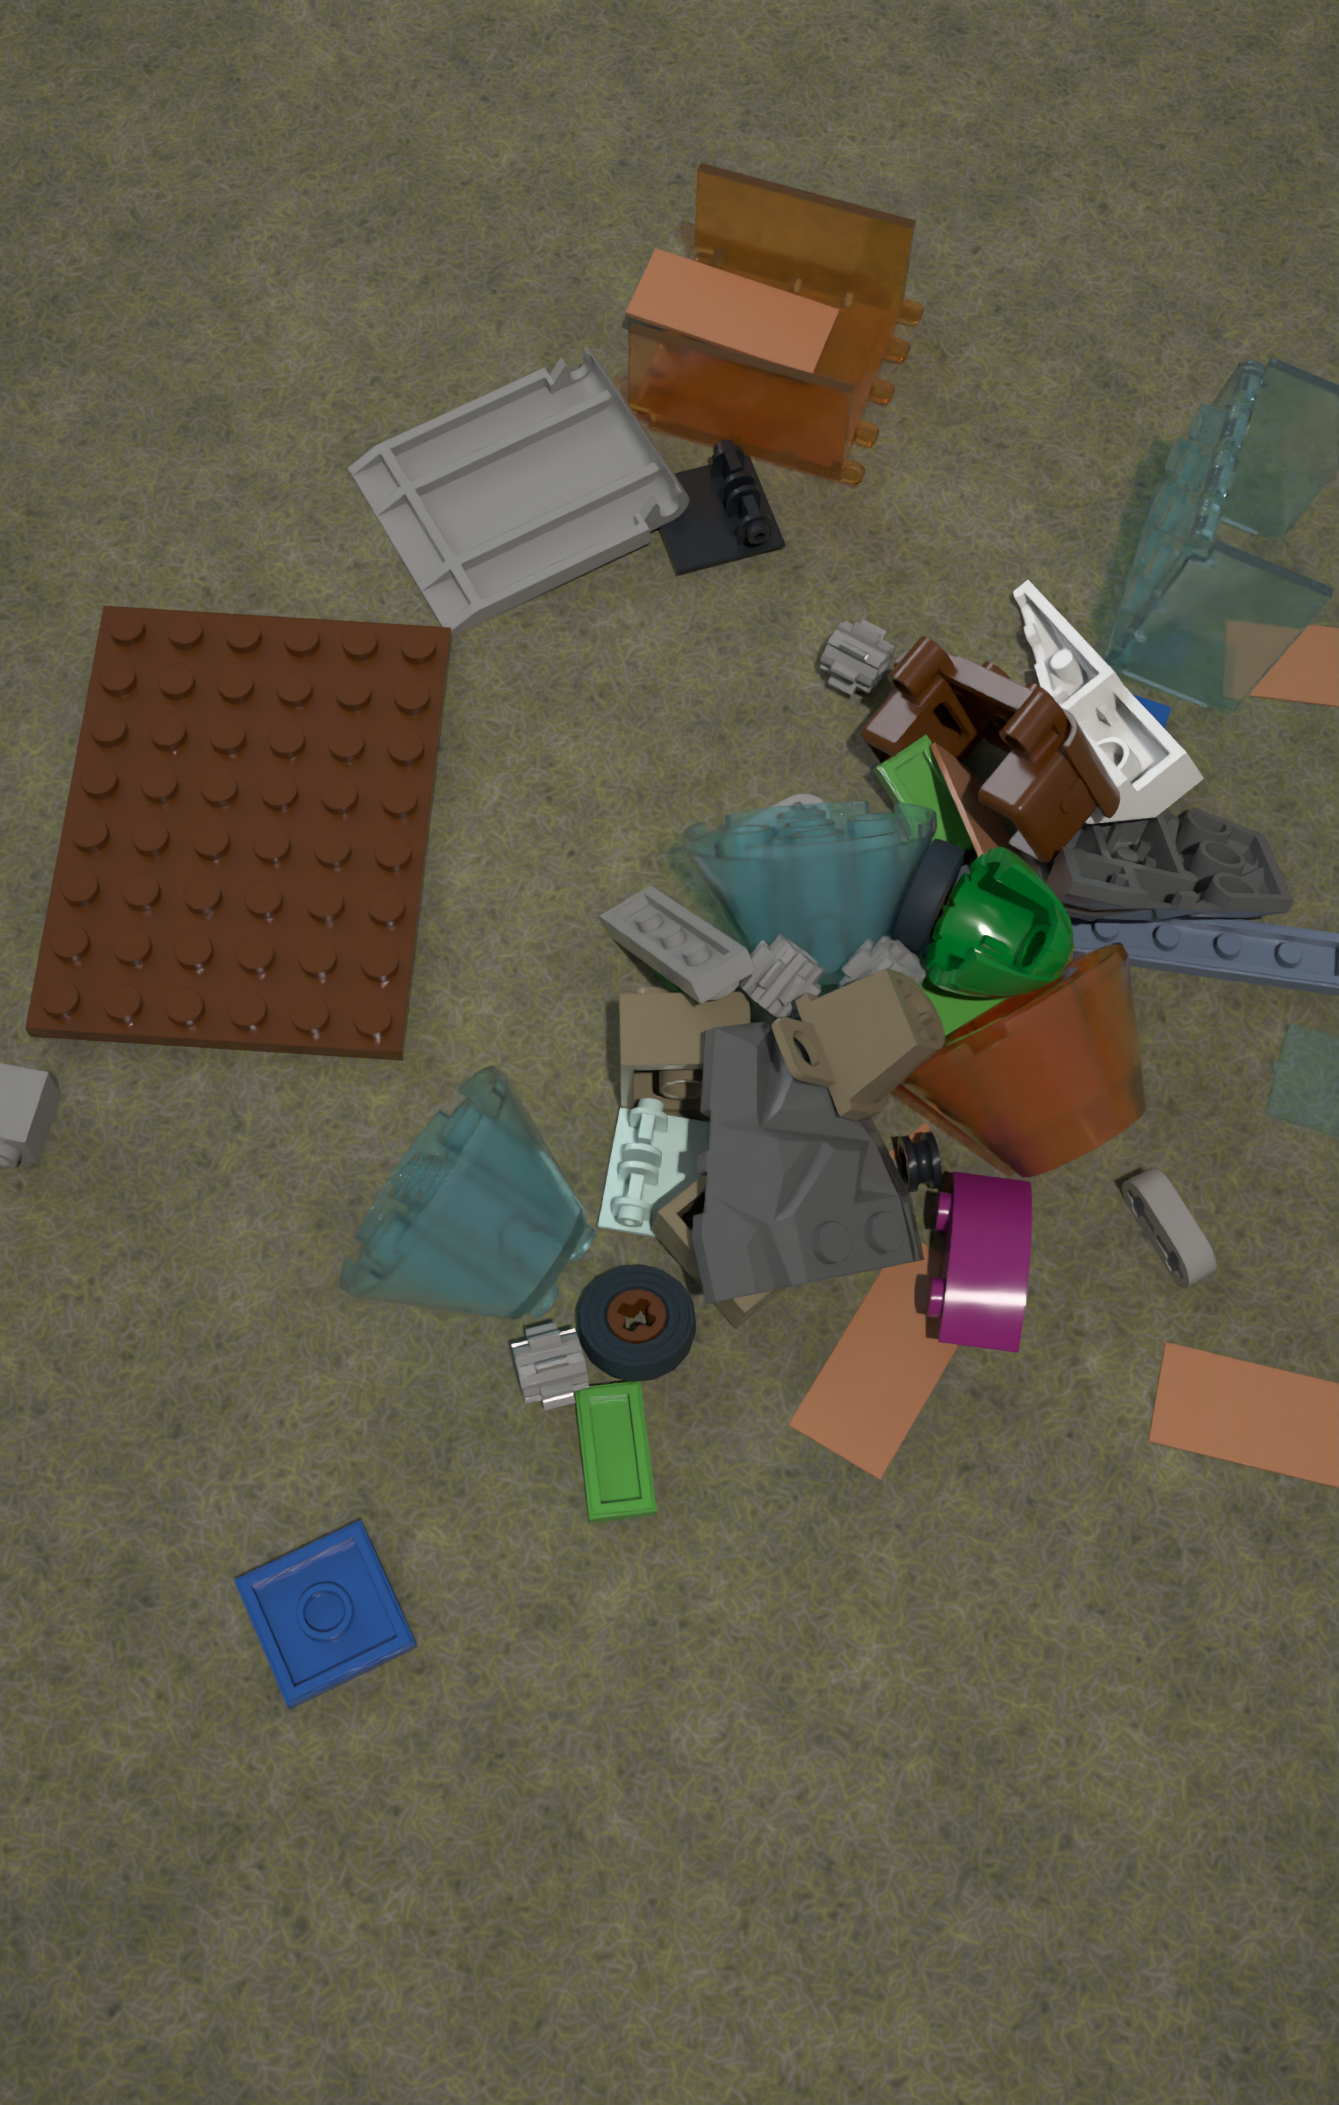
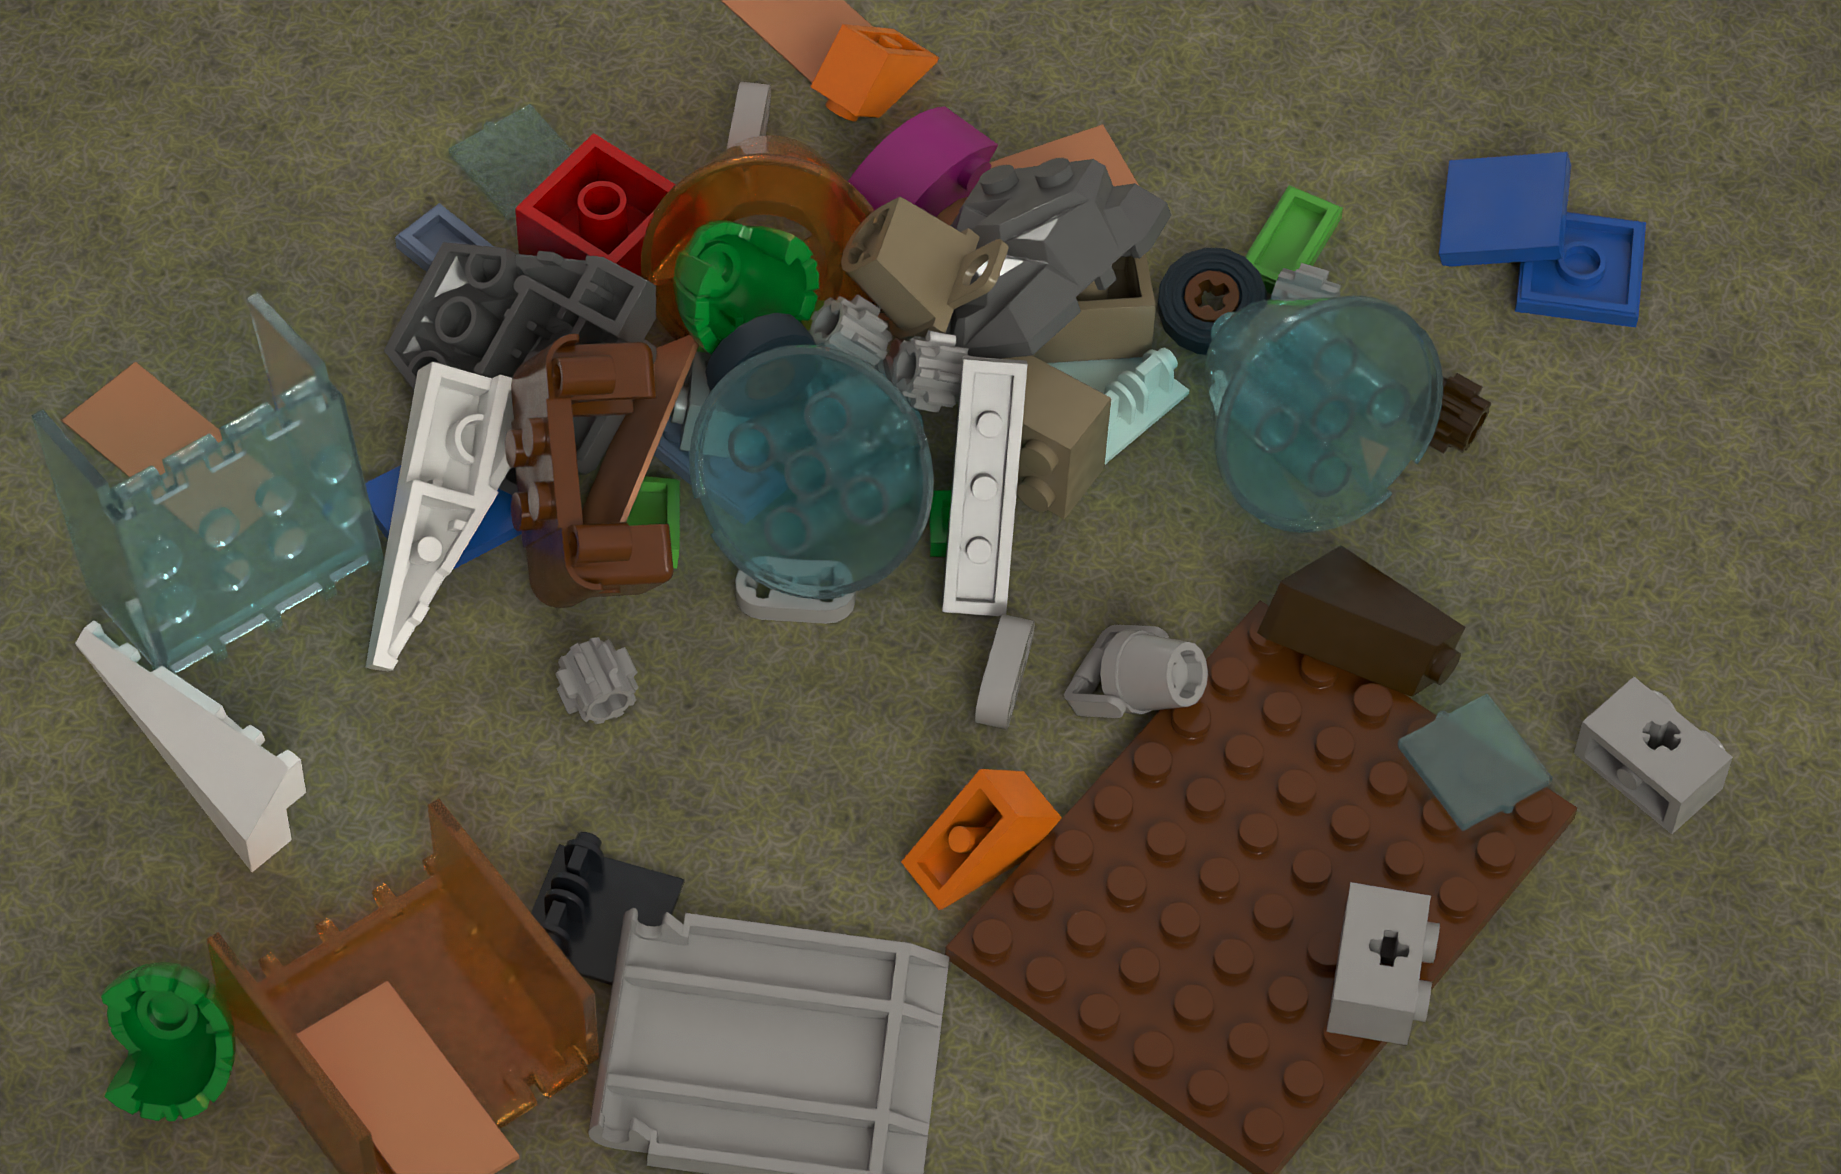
camera: 145 degrees left, 10 degrees down
(99, 762) = (1378, 998): none -> light grey brick
(126, 998) = (1474, 762): none -> clear light blue piece
(293, 1062) = (1363, 624): none -> dark brown slope
(345, 1335) = (1460, 414): none -> dark brown gear
(430, 1616) = (1505, 209): none -> blue tile
(449, 908) = (1137, 673): none -> light grey piece
(478, 719) = (980, 835): none -> orange slope
(562, 859) = (1004, 671): none -> light grey beam
(940, 251) = (175, 1040): none -> green hair
(1031, 432) = (216, 760): none -> white wedge
(1120, 1373) = (870, 70): none -> orange slope
(1203, 1030) = (592, 207): none -> red brick

